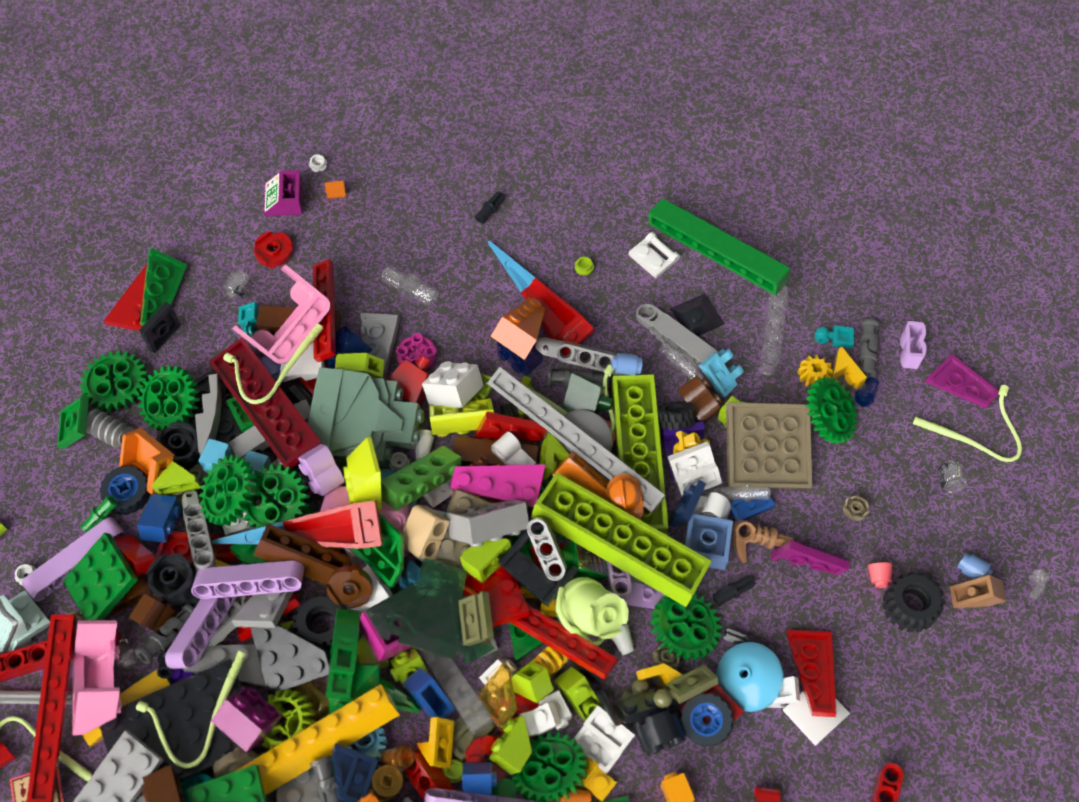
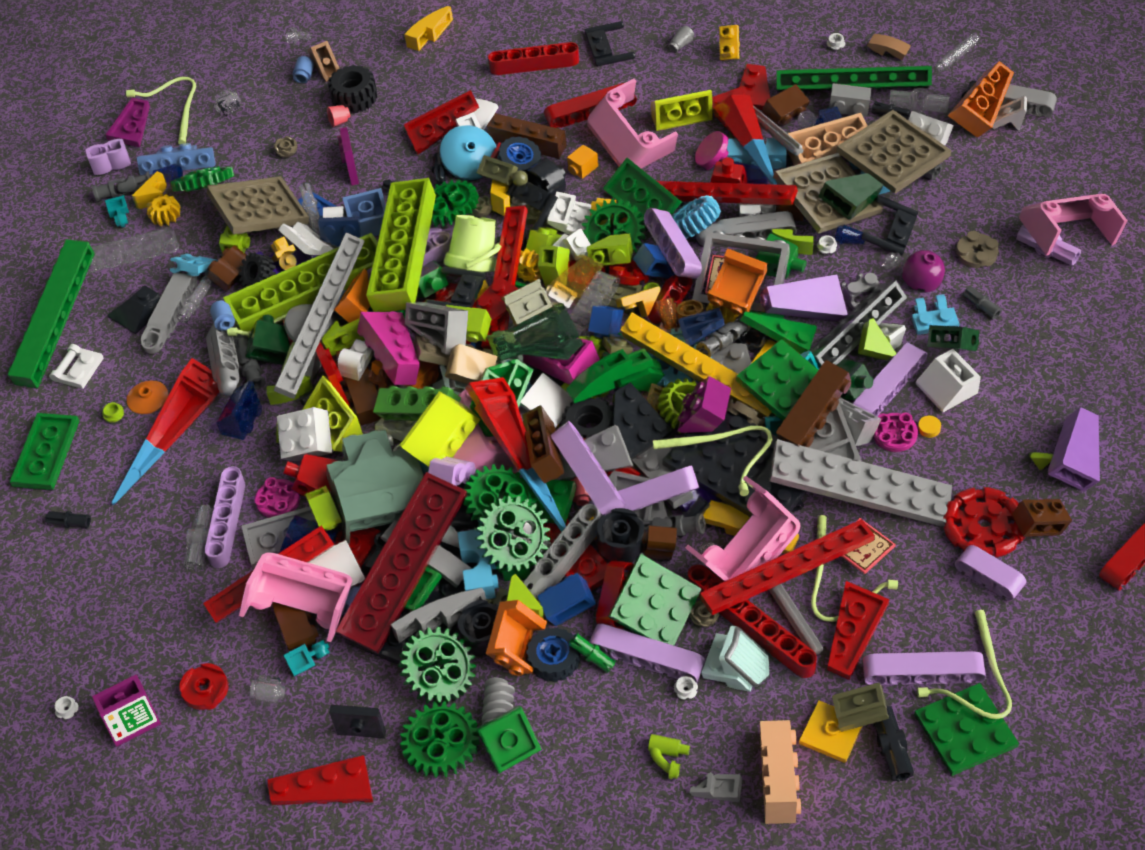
camera: 110 degrees left, 10 degrees down
(161, 282) = (301, 762): green wing -> none
(299, 352) = (326, 555): yellowish green piece -> none
(335, 189) = (98, 666): orange tile -> none
(354, 576) = (550, 398): reddish brown plate -> none
(371, 678) = (615, 343): none -> olive plate
(424, 315) = (225, 517): none -> lavender beam
(520, 327) = (218, 400): orange wedge -> none
(546, 559) = (438, 281): light grey beam -> none
(570, 209) = (44, 451): none -> green plate
(589, 303) = (150, 402): none -> orange dish
(626, 494) = (358, 259): orange piece -> none
(747, 751) = (548, 139): none -> reddish brown brick
(755, 534) = (342, 187): medium nougat piece -> none
(889, 406) = (185, 155): none -> medium blue bracket
(988, 727) = (428, 28): none -> yellow slope

